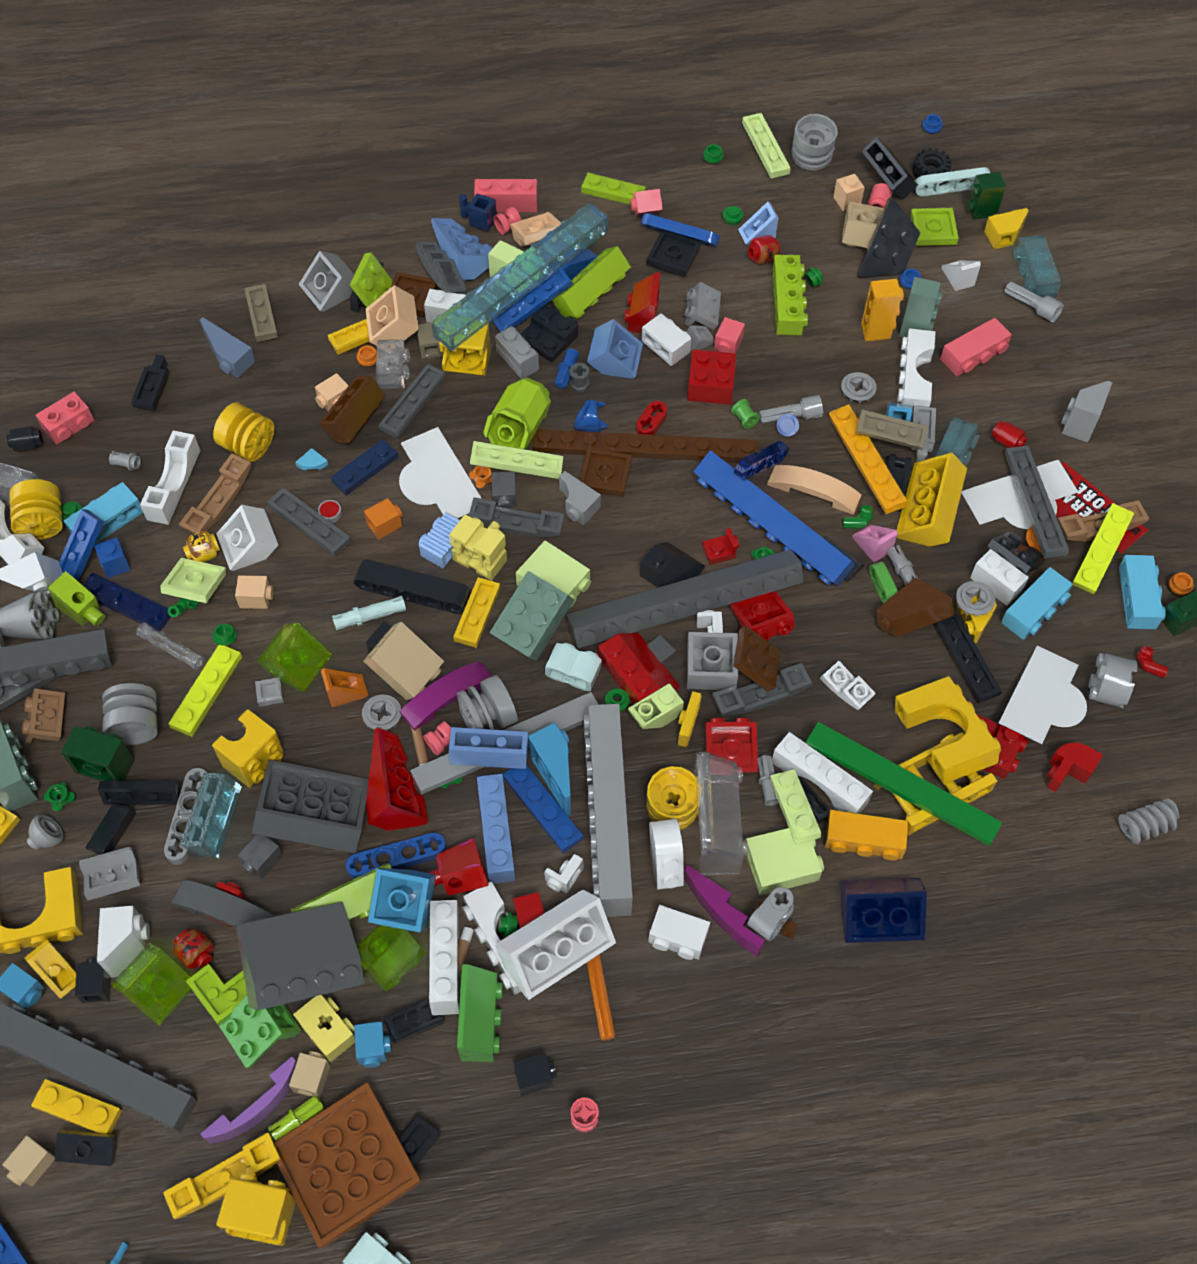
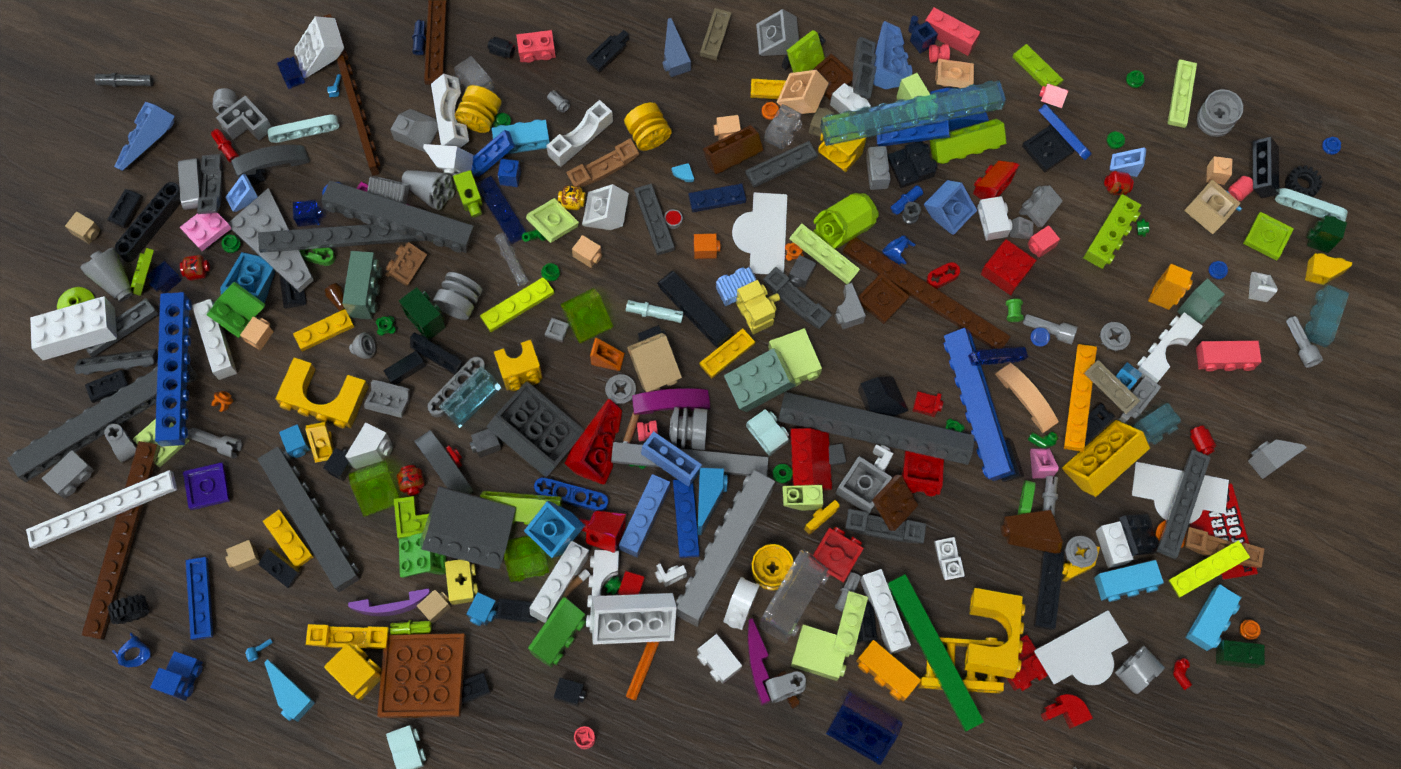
camera: 30 degrees right, 10 degrees up
(890, 243) = (1218, 234): black wing -> none

